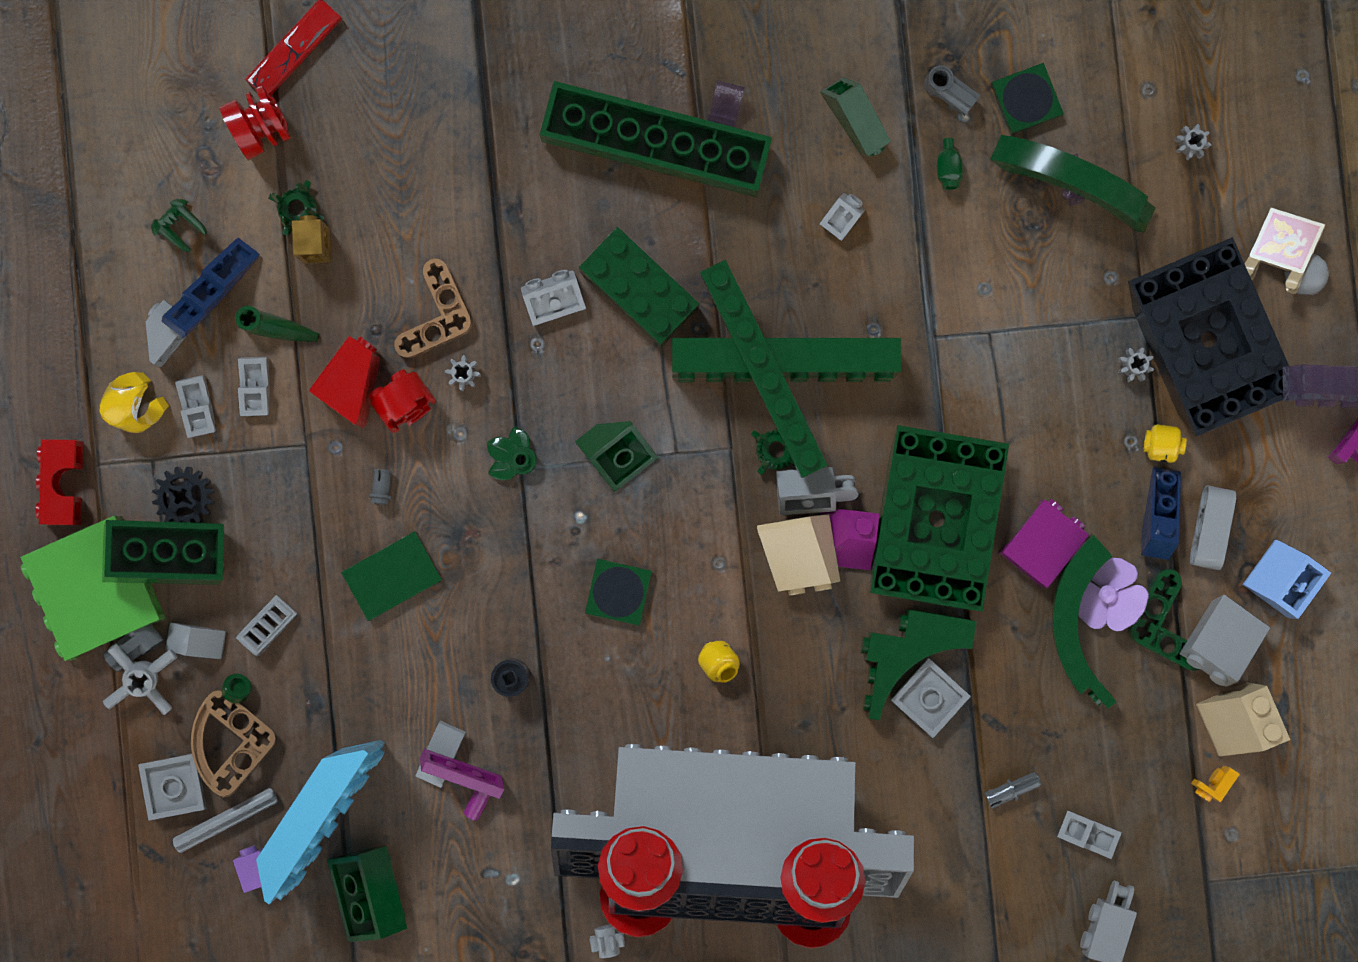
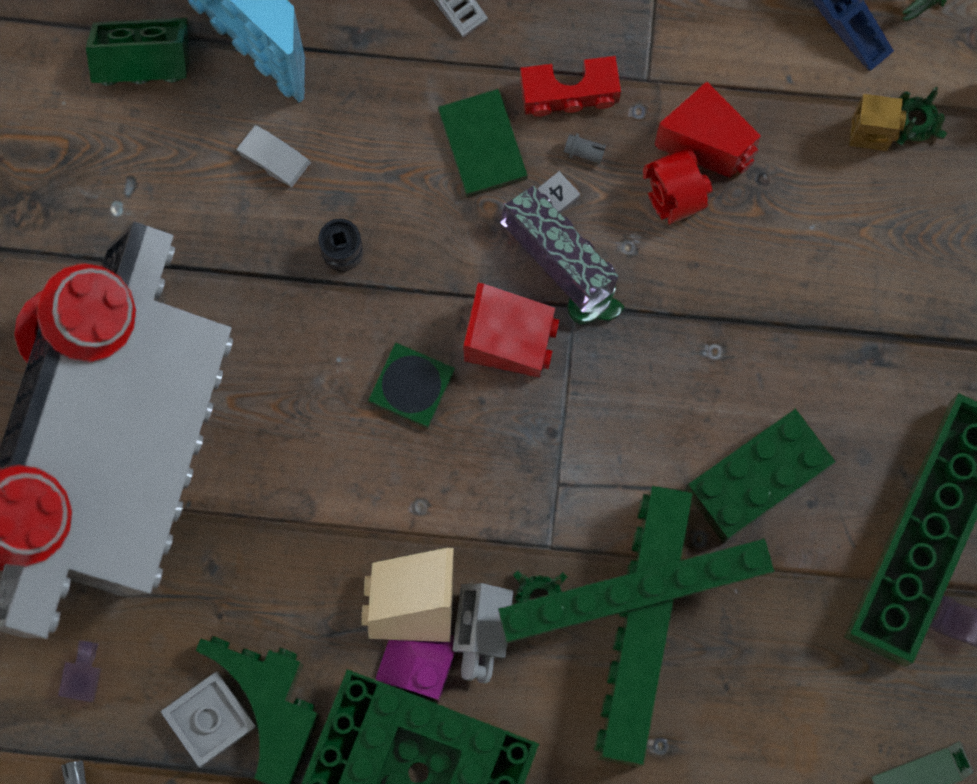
camera: 105 degrees right, 10 degrees down
(254, 386) = (723, 38): light grey slope -> none
(273, 326) = (788, 68): dark green piece -> none
(337, 532) = (545, 94): none -> red arch
(425, 502) = (560, 192): none -> light grey tile
(447, 312) = (769, 257): medium nougat beam -> none
(462, 382) = (697, 251): light grey gear -> none
(477, 490) = (559, 248): none -> clear purple brick
(480, 780) = (243, 174): magenta piece -> none
(552, 297) = (765, 377): light grey bracket -> none
(558, 516) = (509, 332): none -> red slope
(606, 941) = (19, 291): light grey gear -> none
(616, 451) = (571, 412): dark green slope -> none
(719, 661) = (306, 480): yellow head -> none
(843, 215) = (804, 735): light grey bracket -> none
(919, 810) = (80, 679): none -> clear purple plate

